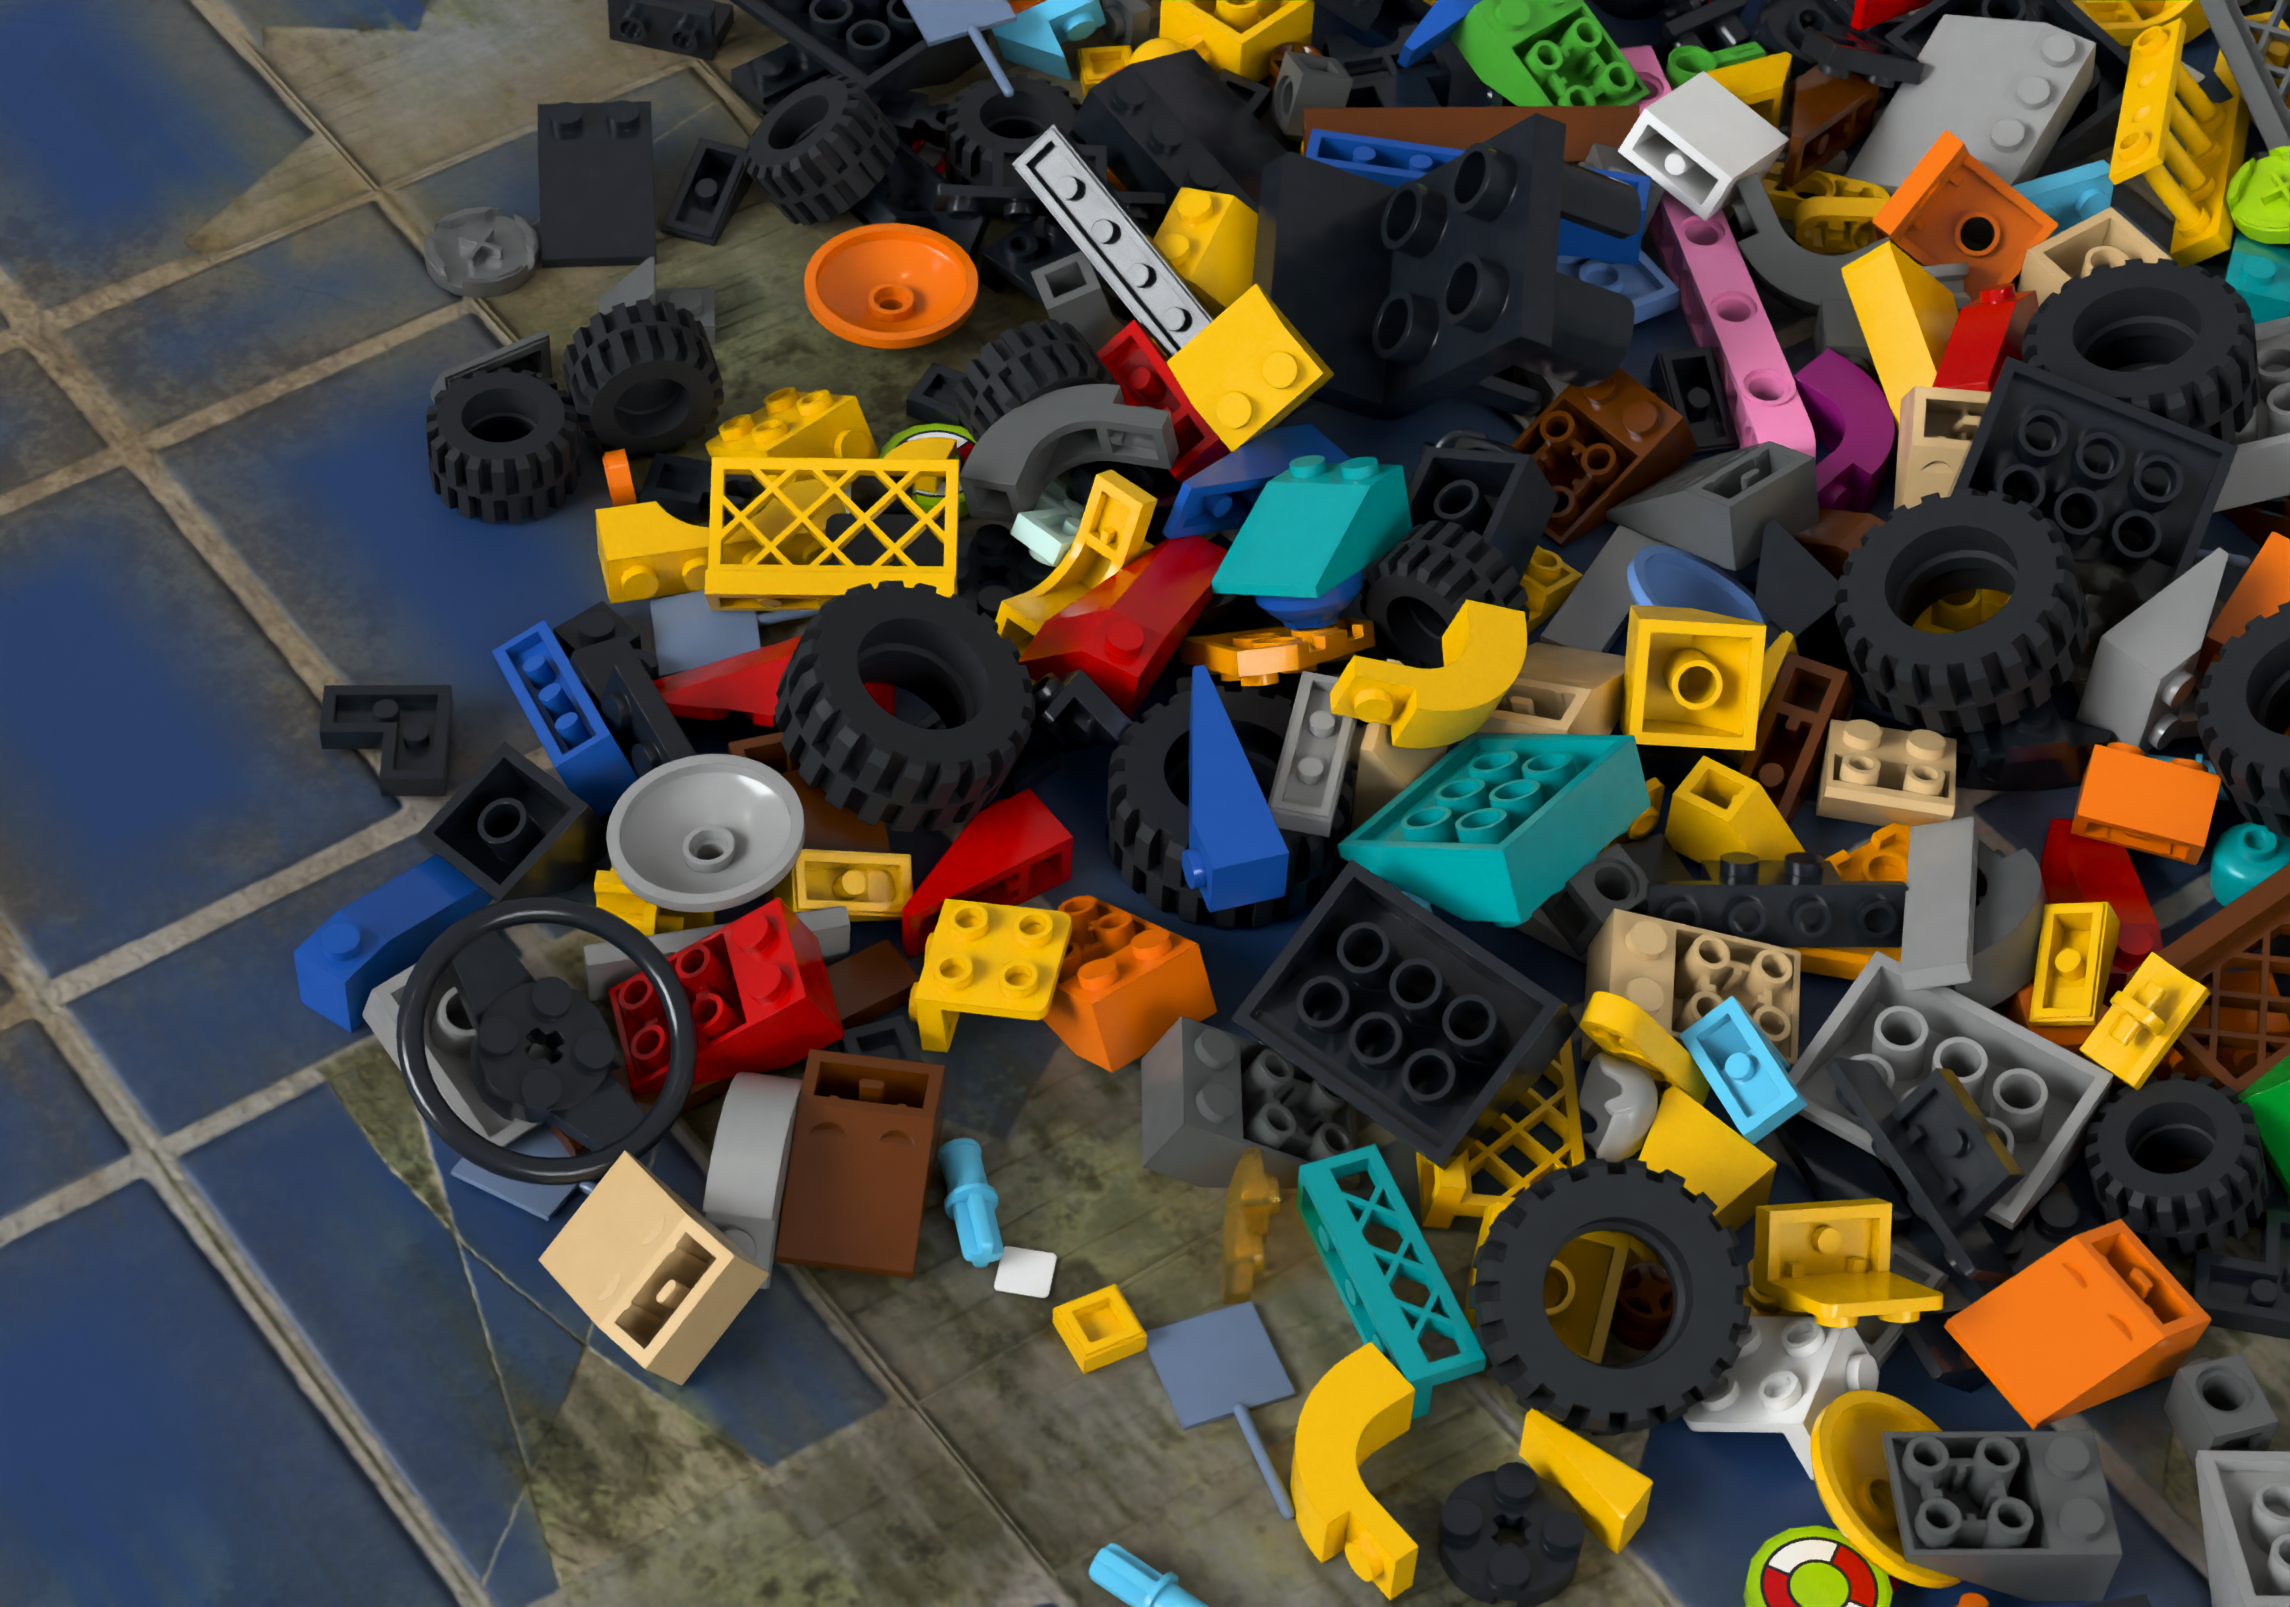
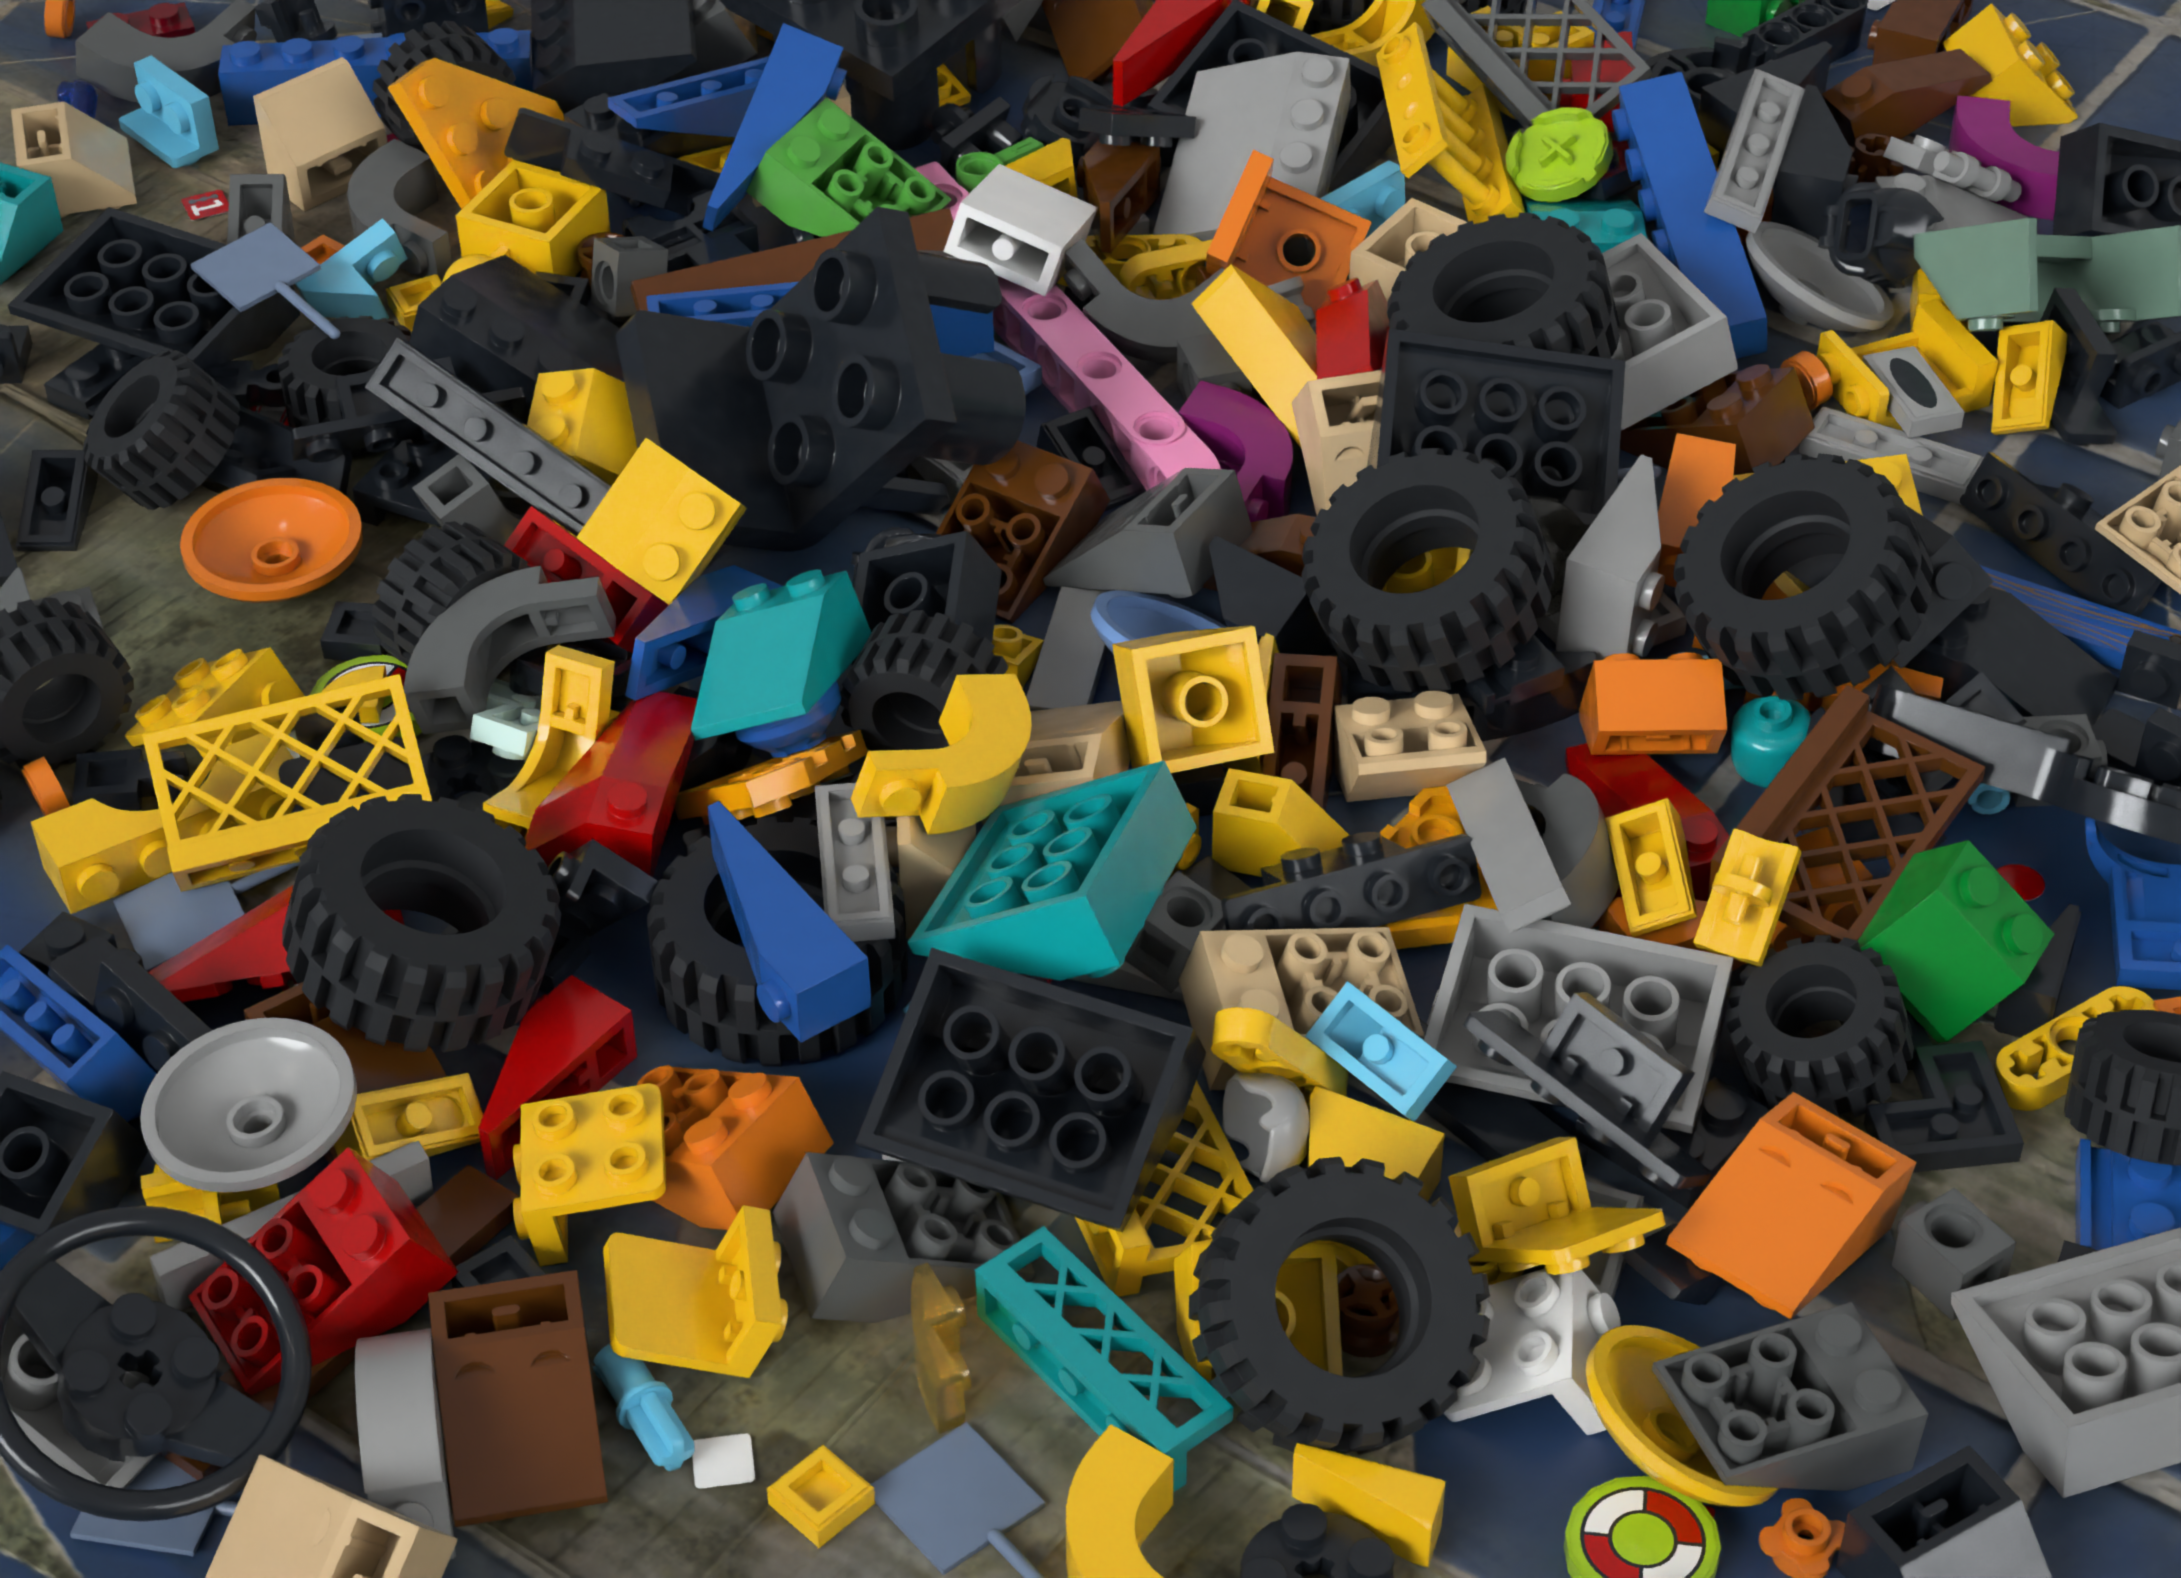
camera: 15 degrees left, 5 degrees down
(1044, 1122) = (697, 1302): none -> yellow bracket

